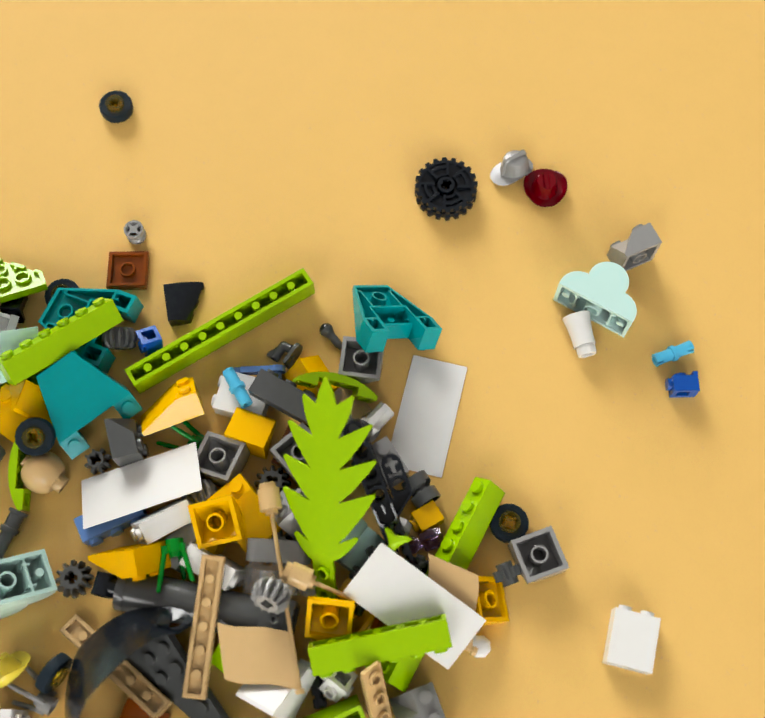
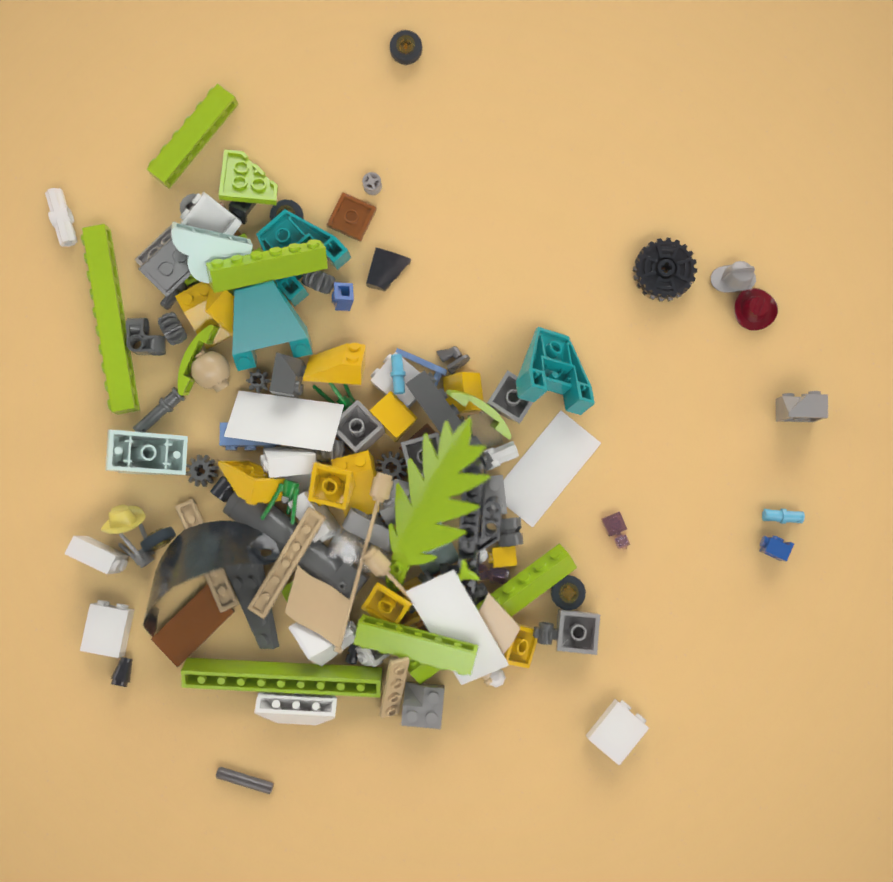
camera: 25 degrees right, 15 degrees up
(43, 433) = (218, 334): black wheel -> none
(220, 331) = (407, 313): lime brick -> none
(271, 594) = (348, 568): light grey gear -> none
(327, 331) = (497, 355): dark grey piece -> none
(520, 437) = (614, 525): none -> plate
(581, 333) = (713, 462): white plant -> none
(601, 294) = (748, 438): light aqua brick -> none

